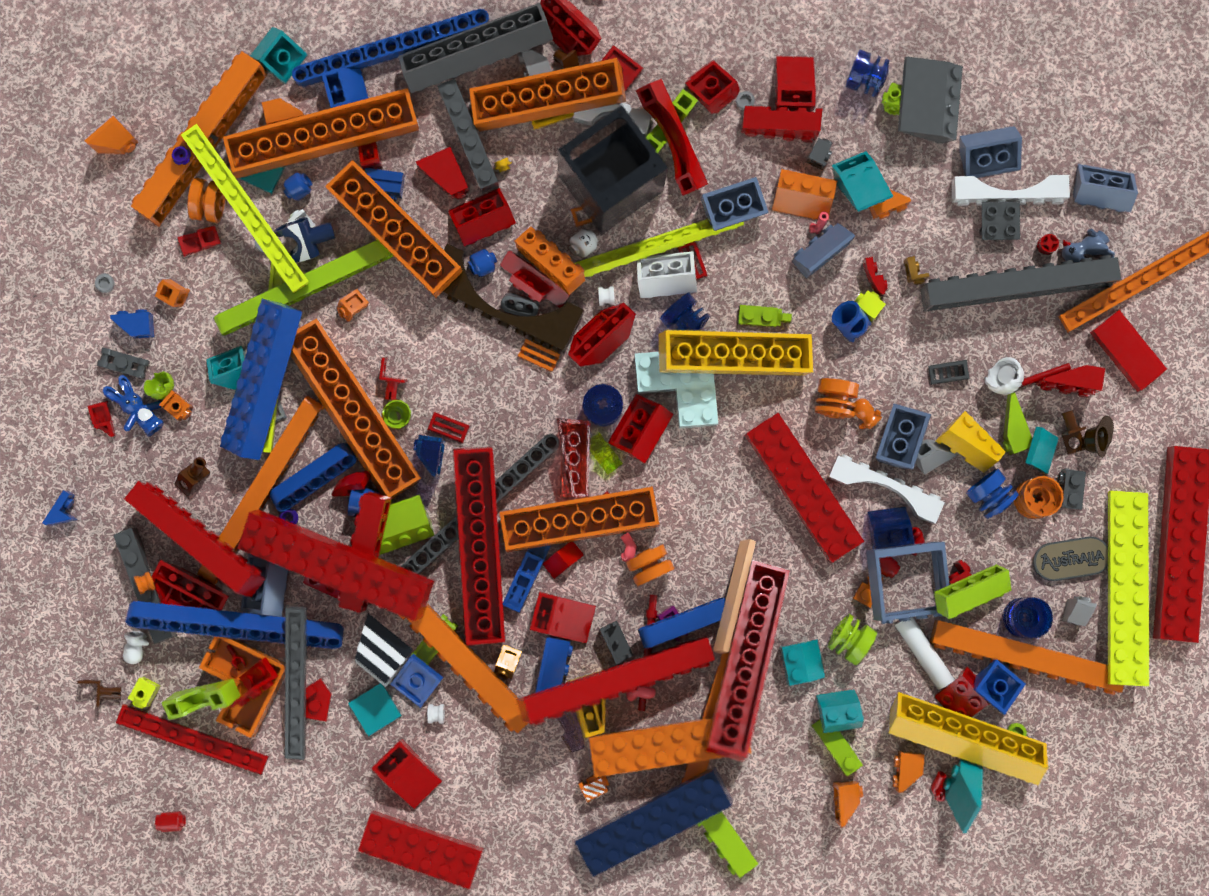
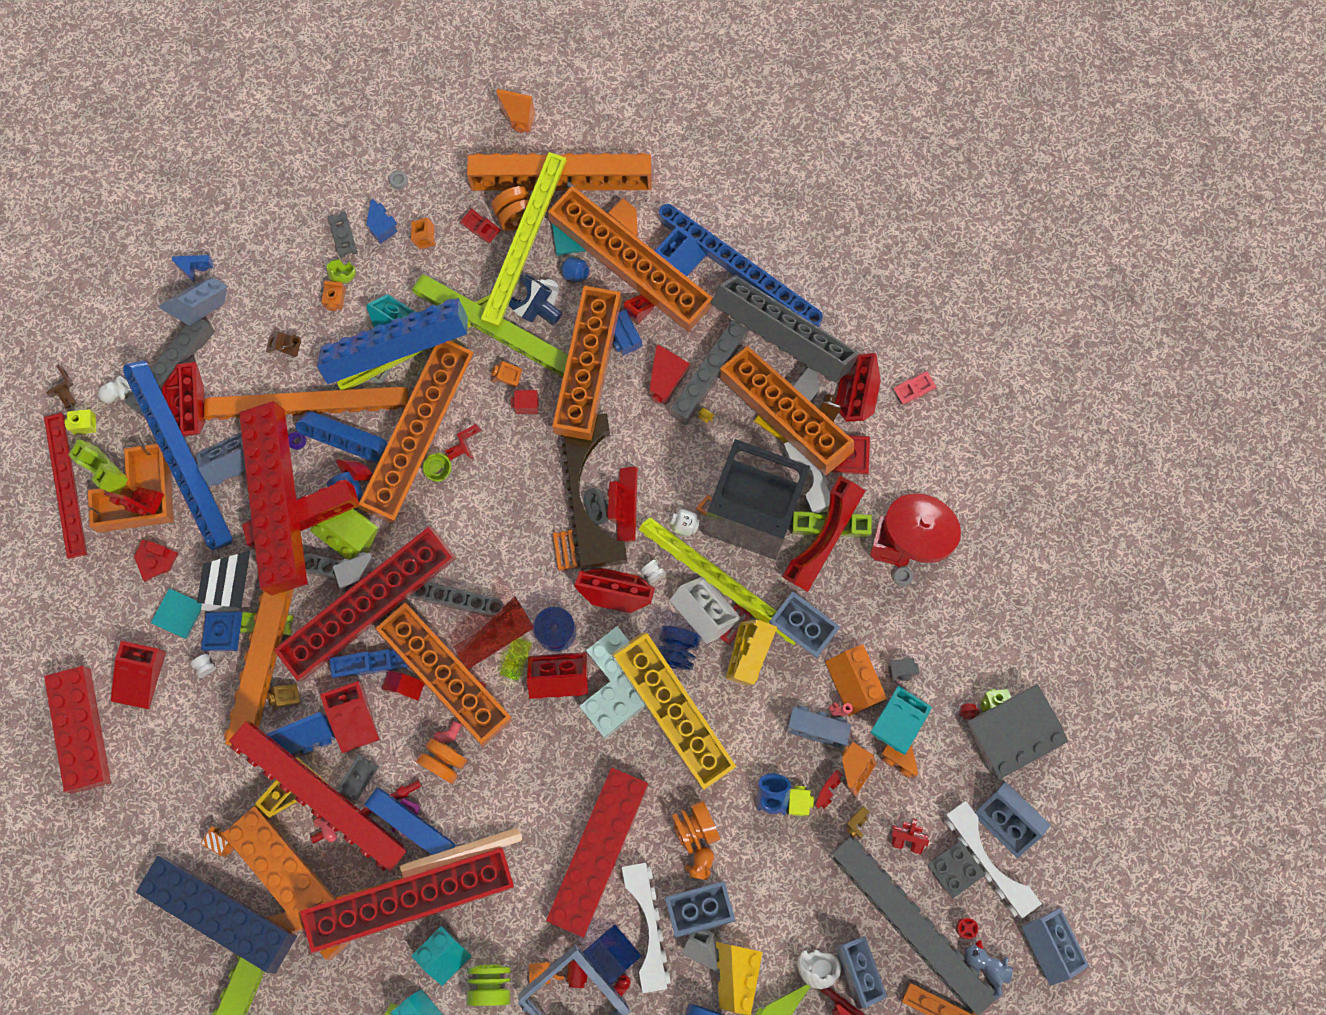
camera: 60 degrees right, 10 degrees down
(100, 526) = (196, 301): none -> sand blue slope
(101, 417) = (288, 247): red slope -> none
(133, 404) = (312, 263): blue animal -> none
(144, 583) = (167, 361): orange wheel -> none
(176, 155) = (533, 159): dark purple plate -> none
(195, 539) = (228, 377): red brick -> none
(236, 659) = (151, 475): red hand -> none
(278, 54) = (672, 186): teal slope -> none
(295, 682) = (158, 532): dark grey tile -> none
(389, 304) = (525, 402): none -> red brick
(430, 452) = (419, 515): clear blue slope -> none
(433, 422) = (458, 532): red tile -> none
(444, 539) = (352, 571): none -> light grey slope
(482, 217) = (649, 427): red slope -> none
(482, 263) = (611, 452): blue head -> none
(550, 260) = (649, 503): orange brick -> none
(573, 734) = (252, 794): slope -> none
(718, 56) = (922, 528): none -> red dish
(726, 261) = (750, 651): none -> yellow wedge
(762, 316) = (726, 715): lime hinge -> none
(782, 123) = (904, 618): red wedge -> none
(795, 83) = (946, 607): red slope -> none
(868, 73) = (1000, 662): clear blue wheel -> none
(872, 241) = (857, 766): none -> orange slope
(886, 125) = (968, 711): none -> red plate
(949, 236) = (901, 834): none -> red hips
(950, 379) = (795, 910): dark grey slope -> none
(1029, 347) = (861, 972): none -> sand blue slope

